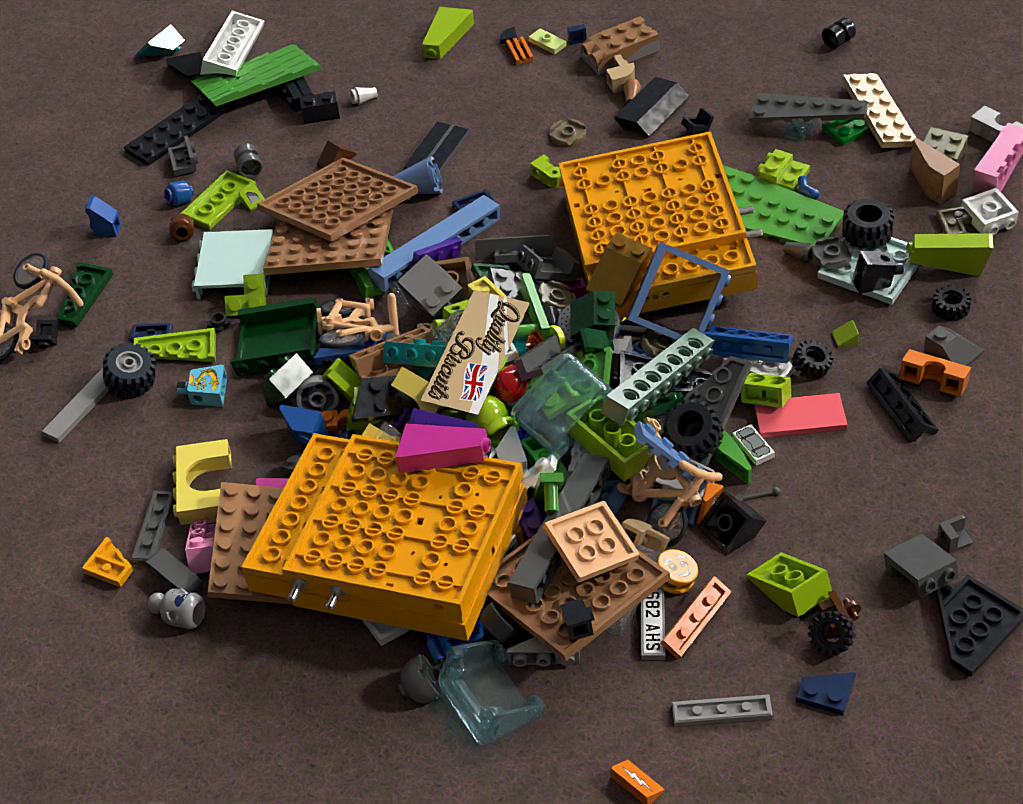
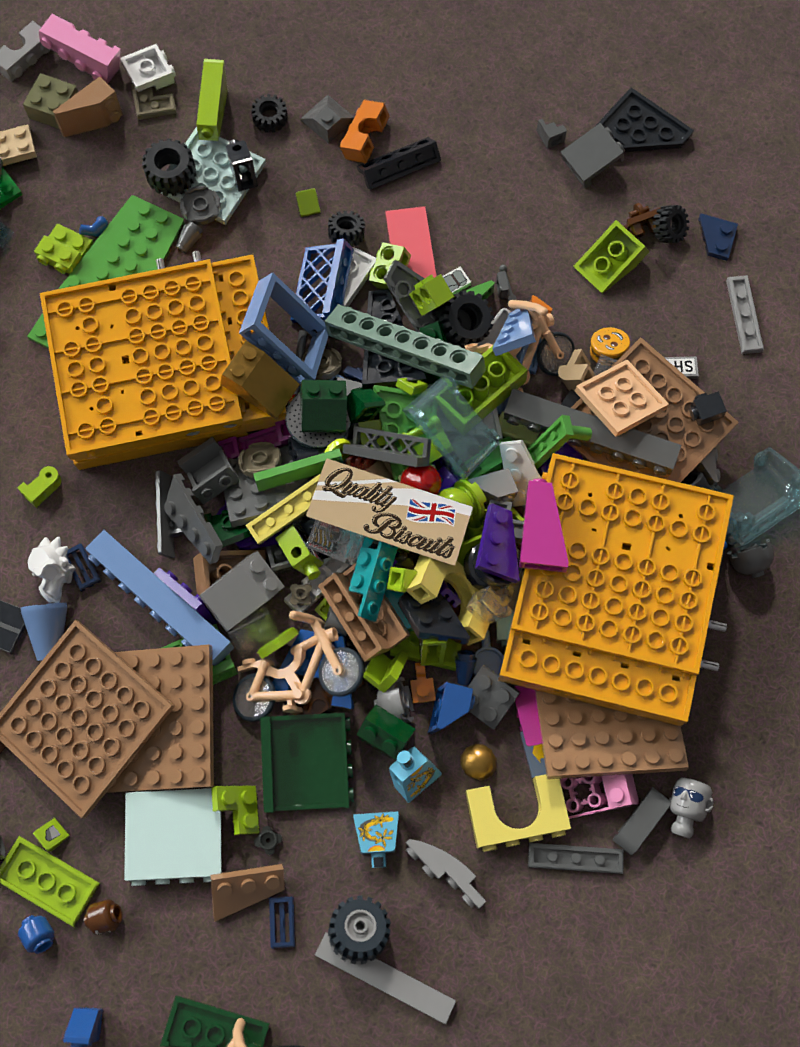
camera: 100 degrees left, 25 degrees up
(108, 564) = (632, 896): light orange wing -> none
(169, 431) = (438, 862): none -> light grey slope
(182, 304) = (244, 888): none -> medium nougat wing
(187, 345) = (309, 872): lime wing -> none
(251, 404) = (412, 773): none -> medium azure torso
(254, 459) = (478, 762): none -> pearl gold hair
(379, 309) = (278, 642): none -> lime tile
(418, 367) = (400, 579): none -> lime slope
(466, 178) = (51, 565): none -> white head
(495, 248) = (191, 520): none -> dark grey wing
(611, 376) = (411, 387): none -> lime tile
(695, 617) = (655, 331): plate -> none
(710, 386) = (430, 293): none -> lime brick
(731, 523) = (555, 293): black slope -> none
(751, 484) = (502, 285): none -> dark grey tile

